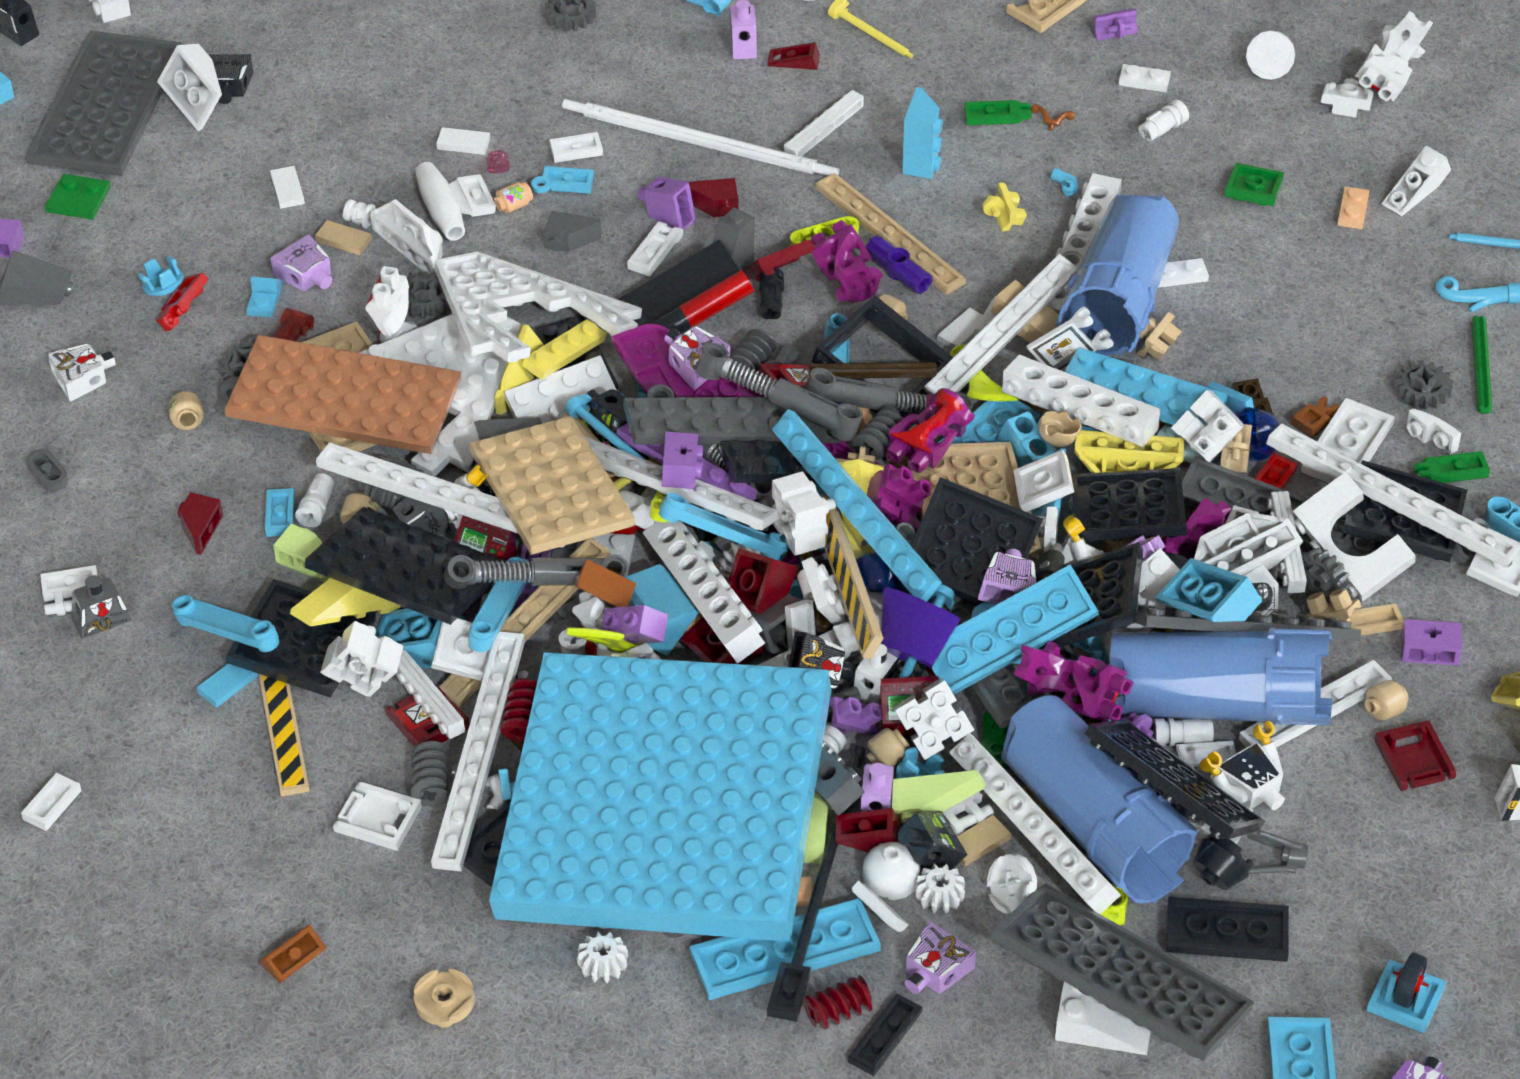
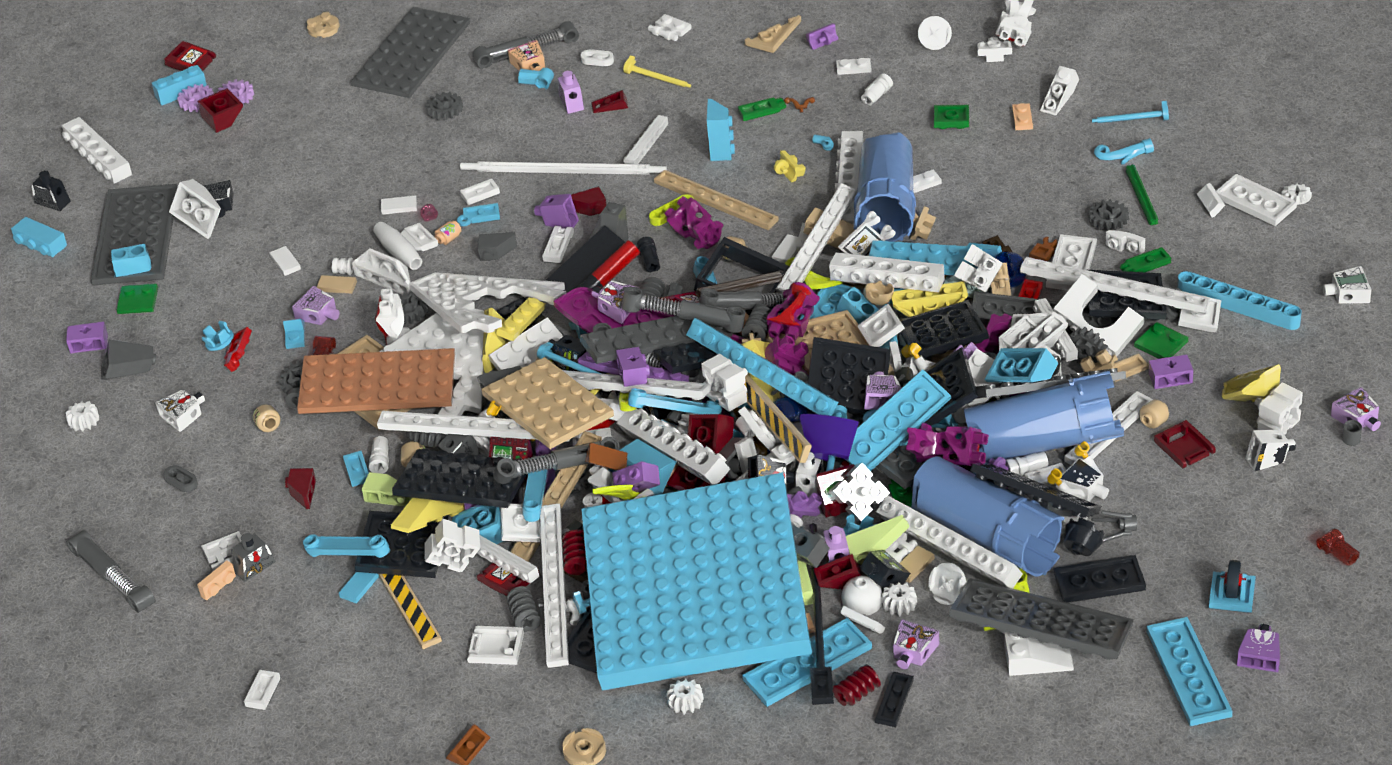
camera: 10 degrees left, 5 degrees down
(46, 627) = (216, 580): none -> light nougat plate
(83, 140) = (130, 260): none -> medium azure piece
(778, 260) = (649, 229): dark red container -> none
(887, 747) = (832, 517): tan head -> none
(898, 264) = (730, 217): dark purple piece -> none
(1434, 593) = (1161, 341): none -> green plate

